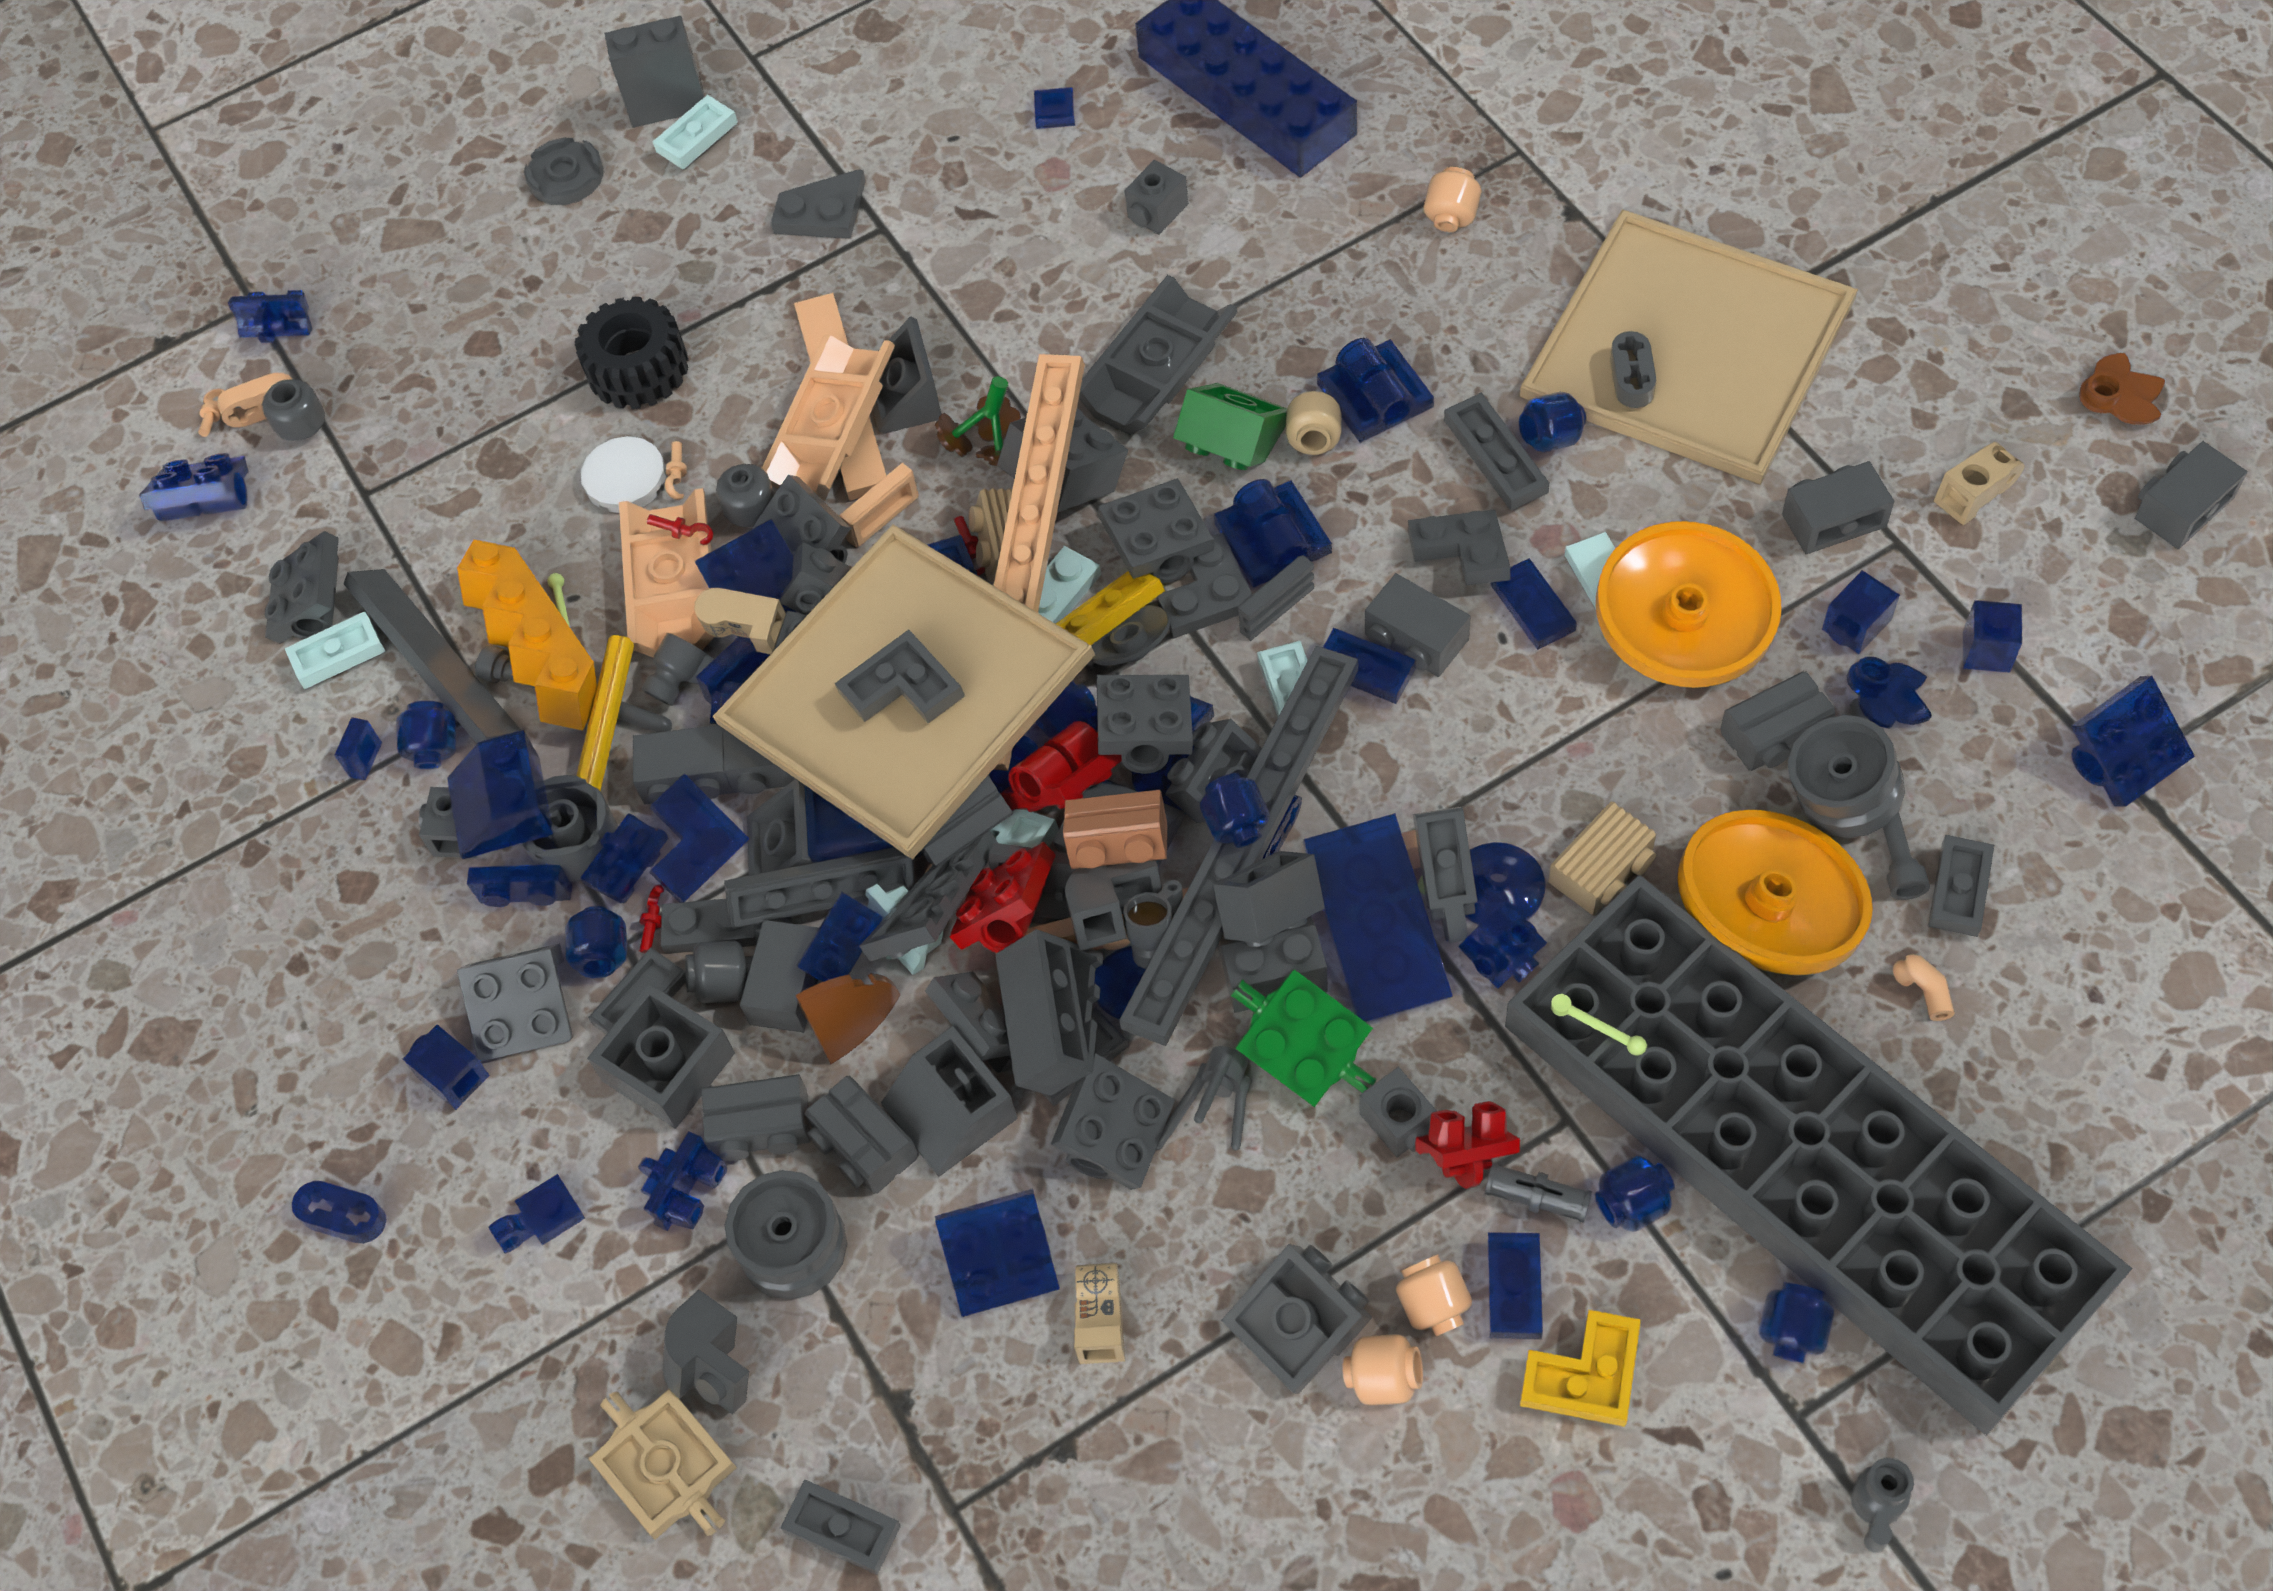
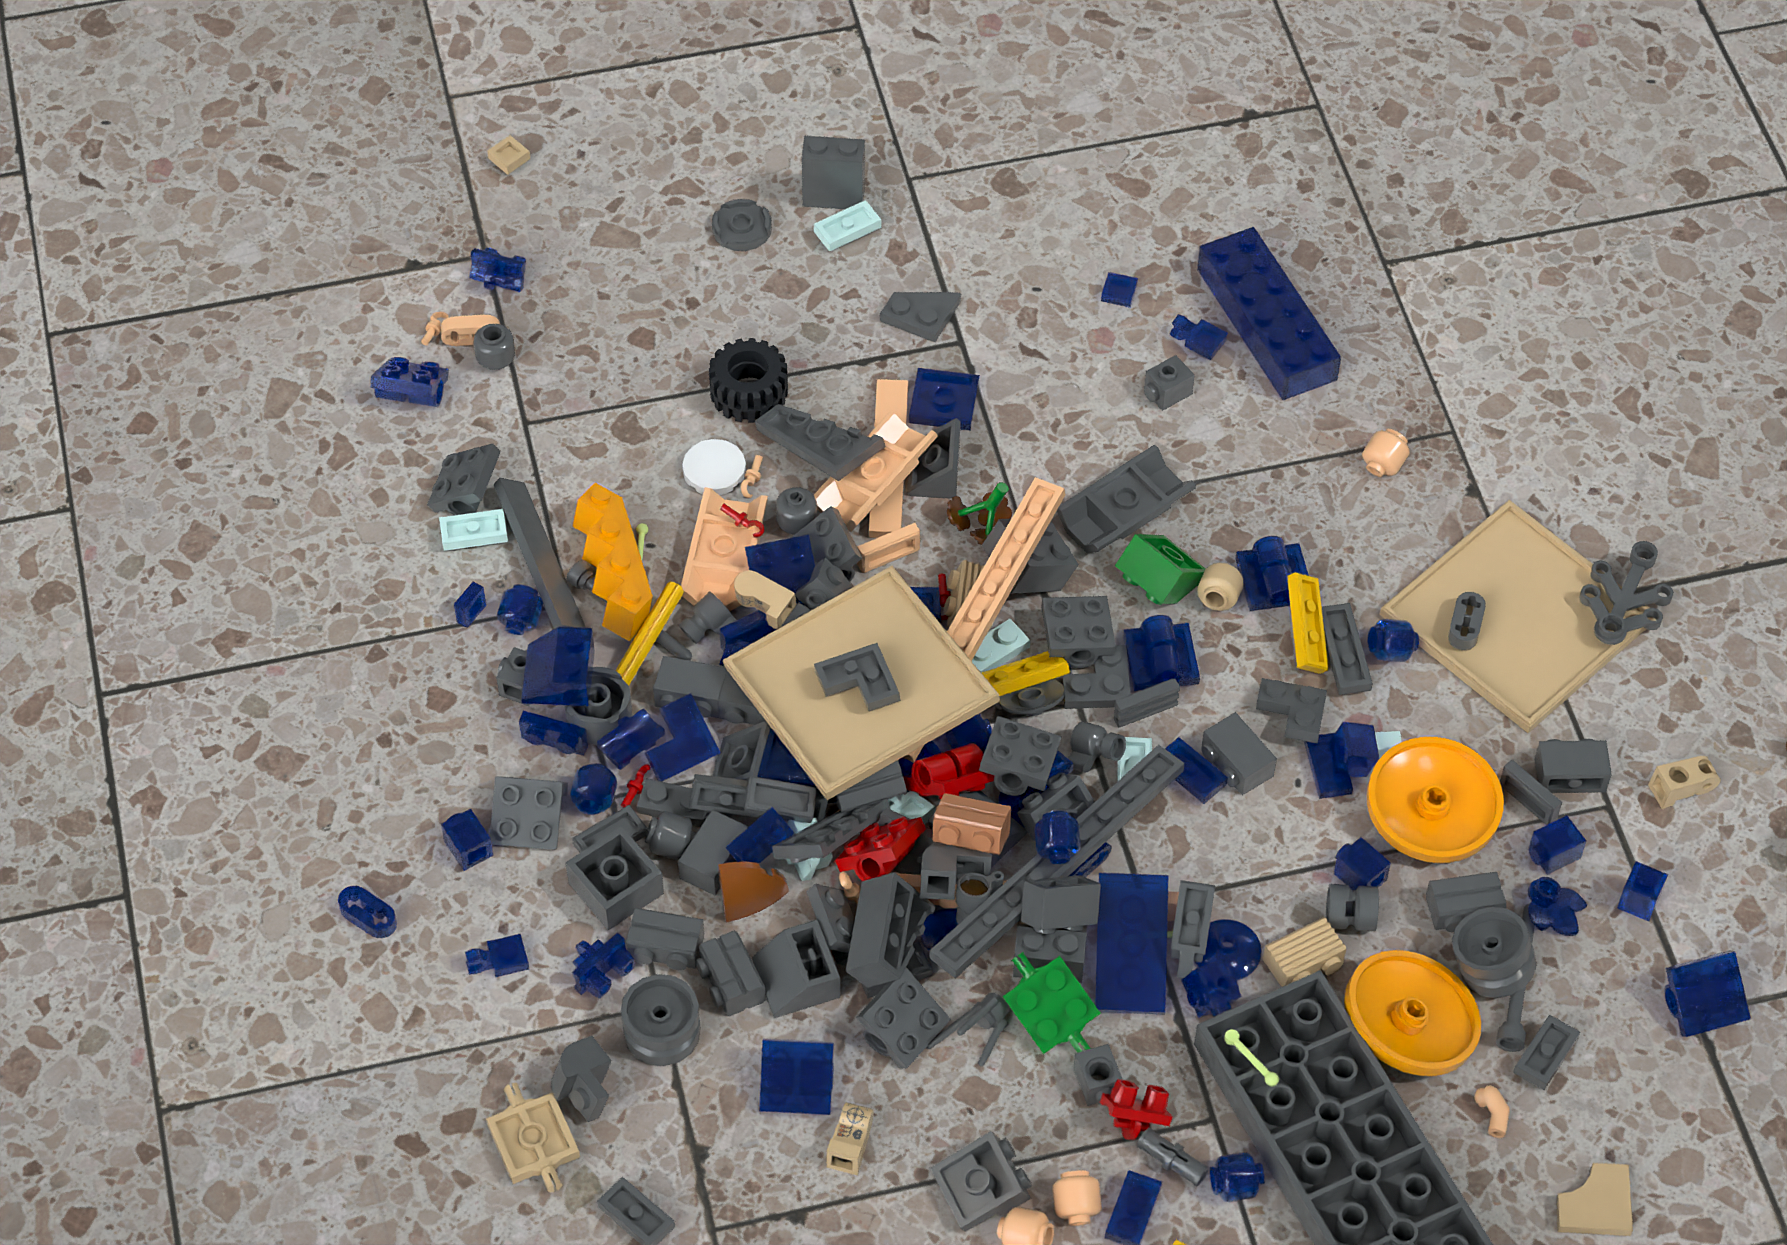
camera: 10 degrees right, 5 degrees down
(245, 173) = (508, 154): none -> tan plate
(747, 400) = (819, 442): none -> dark grey wing
(859, 874) = (788, 799): none -> dark grey tile
(883, 299) = (943, 397): none -> clear blue tile
(984, 967) = (851, 890): none -> light nougat hand
(1175, 133) = (1200, 338): none -> clear blue plate
(1226, 668) = (1092, 741): none -> dark grey piece
(1441, 433) = (1307, 623): none -> yellow tile
(1562, 572) = (1354, 749): none -> clear blue brick
(1628, 720) = (1361, 865): none -> clear blue brick
(1655, 772) = (1364, 907): none -> dark grey wheel
(1801, 557) = (1530, 793): none -> dark grey tile
(1813, 320) = (1624, 598): none -> dark grey plant
(2114, 1066) = (1598, 1205): none -> tan tile

